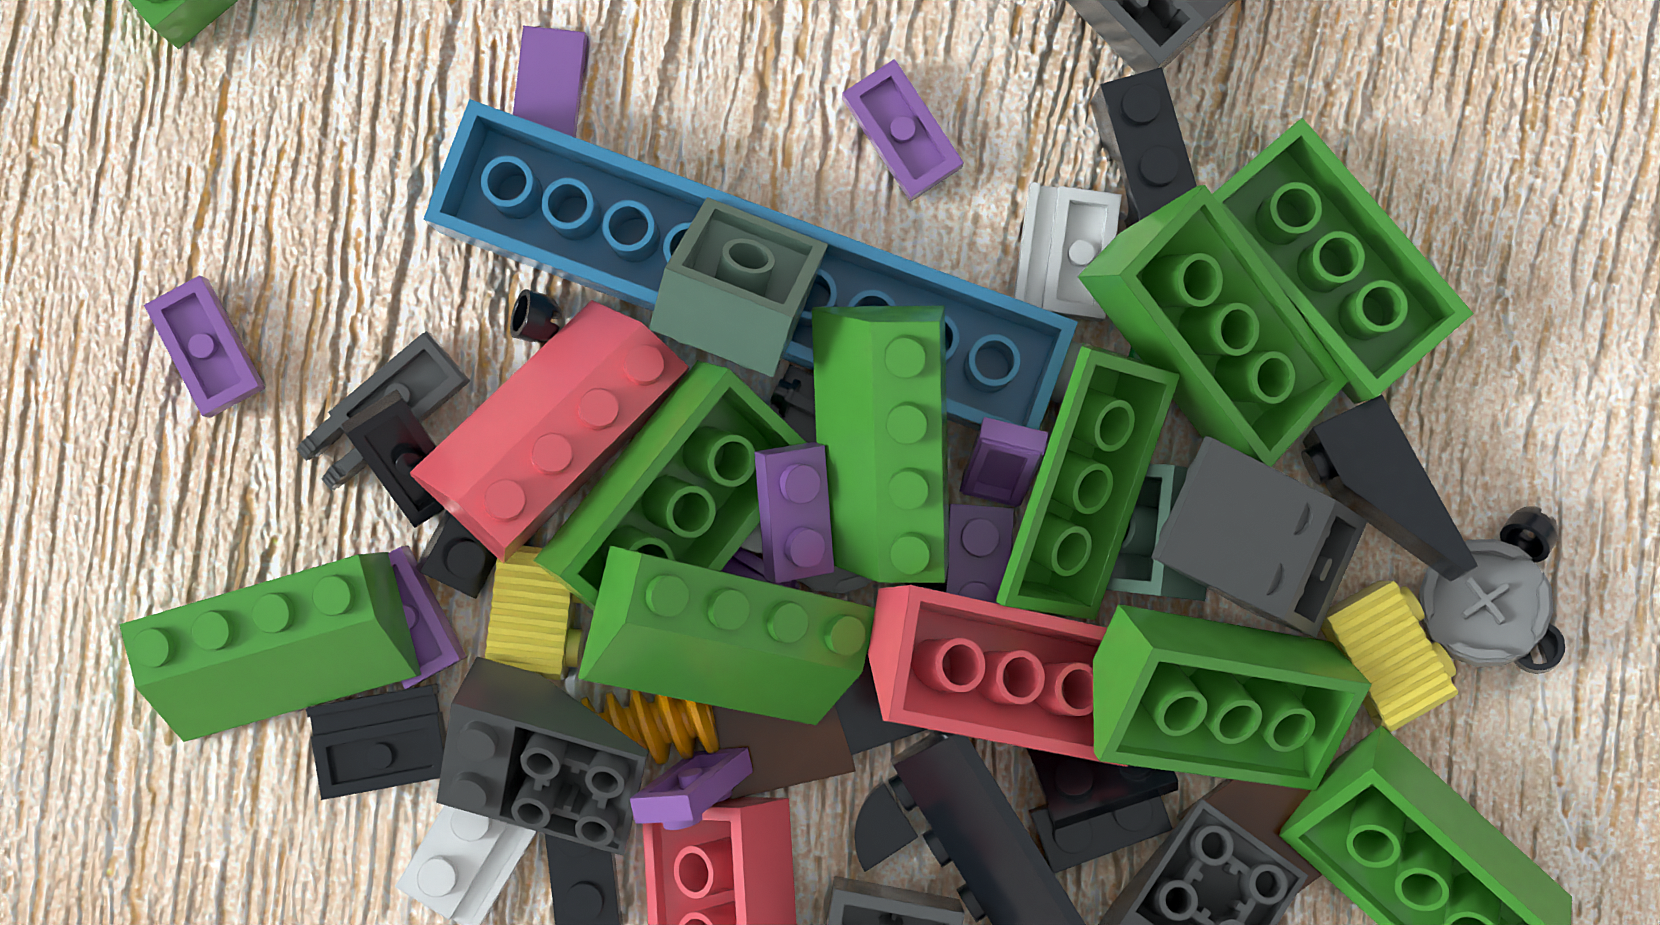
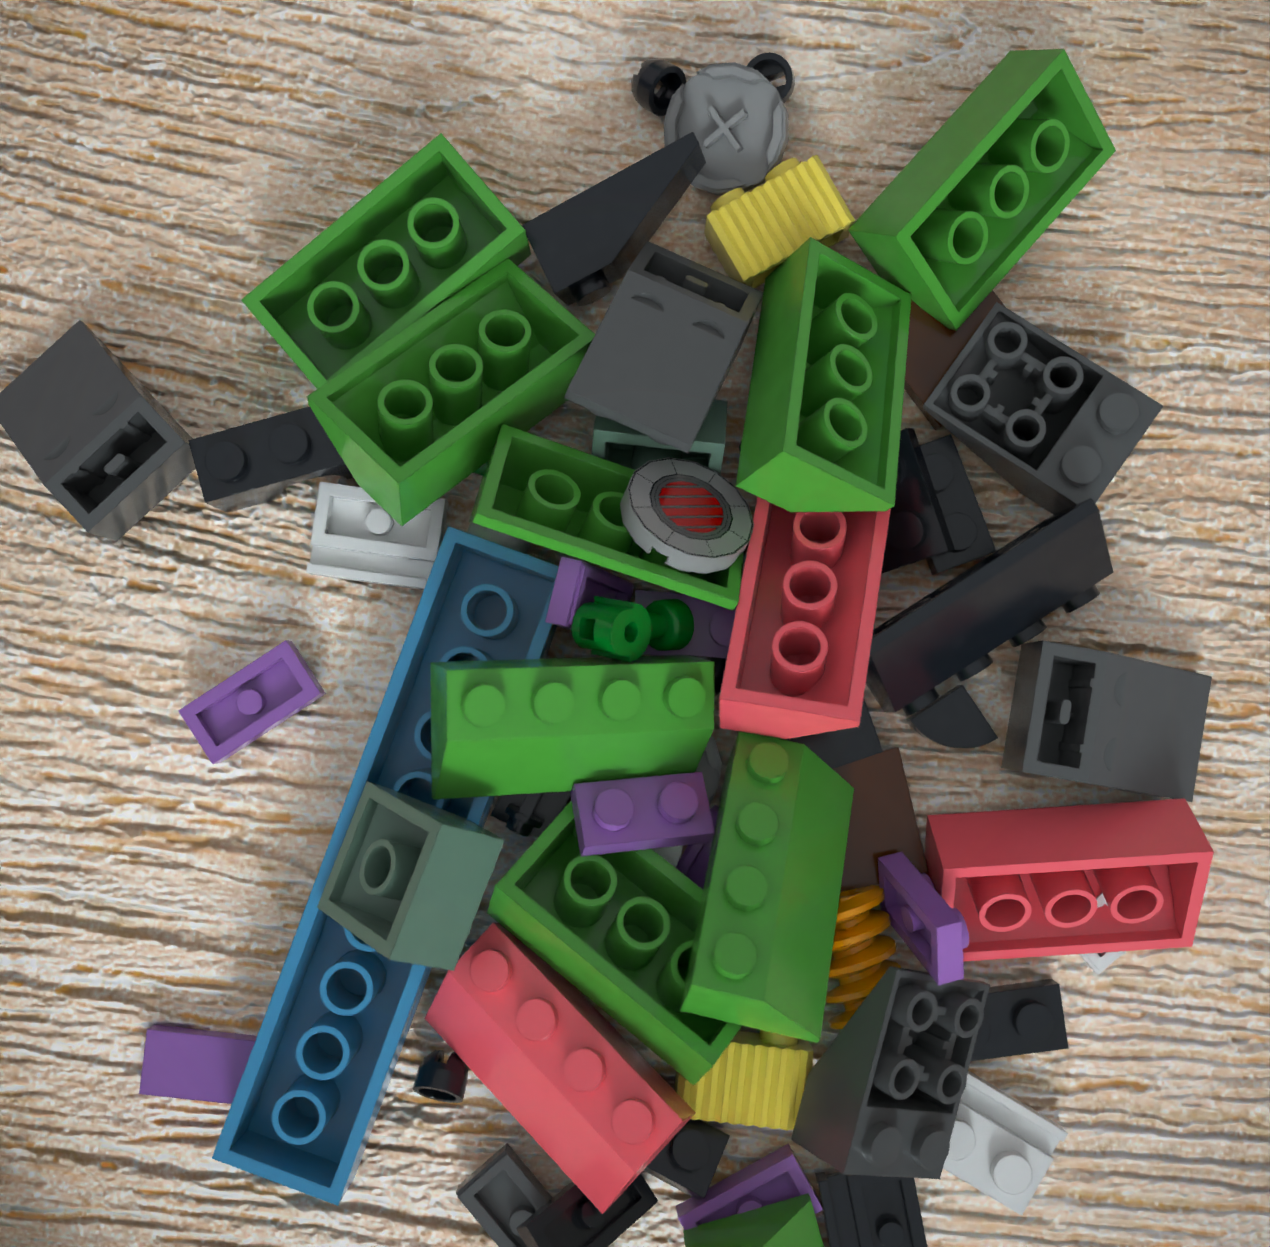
camera: 90 degrees left, 0 degrees up
(977, 496) = (626, 628): none -> green leg
(1089, 556) = (686, 515): none -> tile

